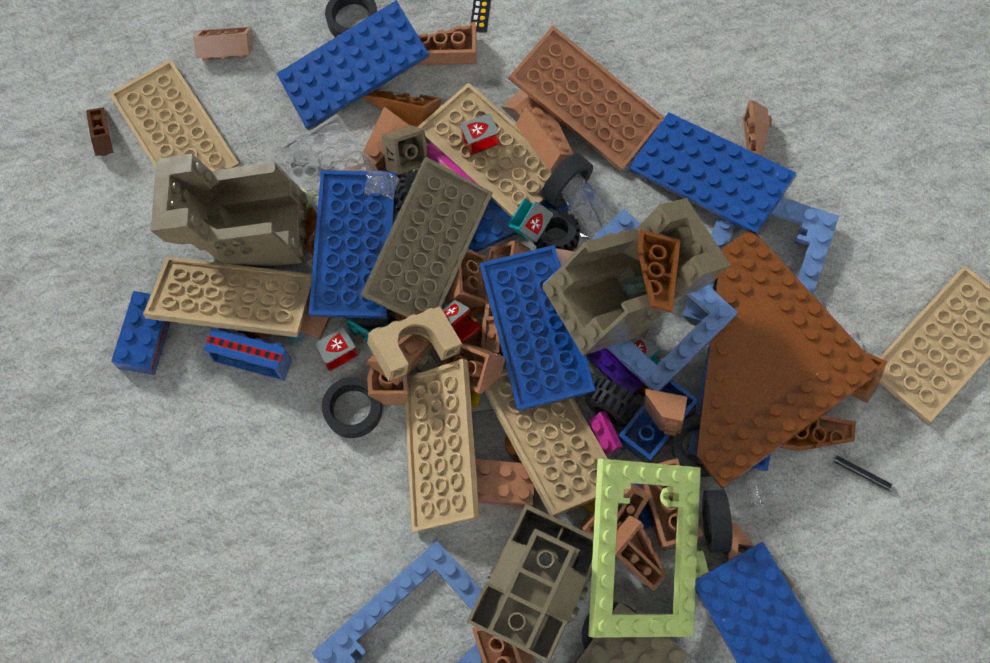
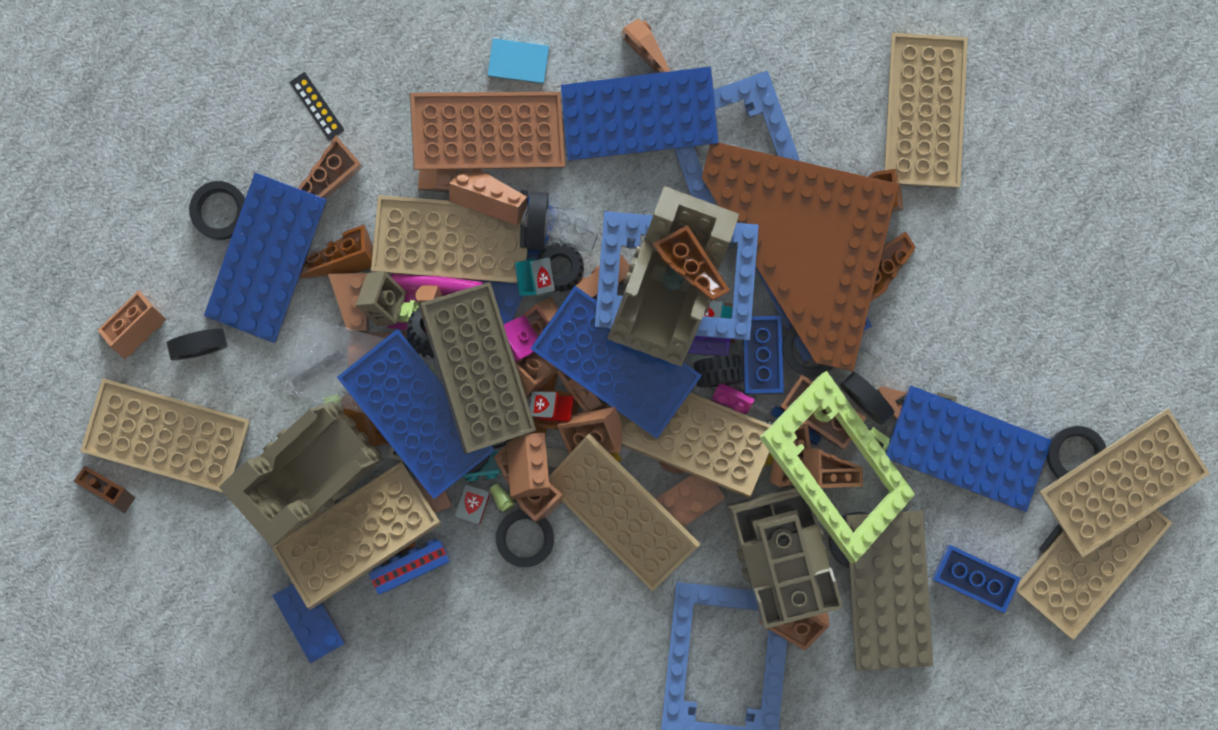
camera: 45 degrees left, 15 degrees up
(250, 80) = (196, 344): none -> black tyre
(361, 368) = (502, 498): none -> yellowish green cone
(381, 183) = (397, 349): clear piece -> none
(429, 324) = (537, 429): tan arch -> none
(479, 134) = (432, 237): piece -> none
(479, 251) = (520, 337): none -> dark pink plate
(651, 77) = (518, 61): none -> medium azure tile
(666, 410) = (772, 351): nougat slope -> none
(863, 473) = (940, 267): black piece -> none

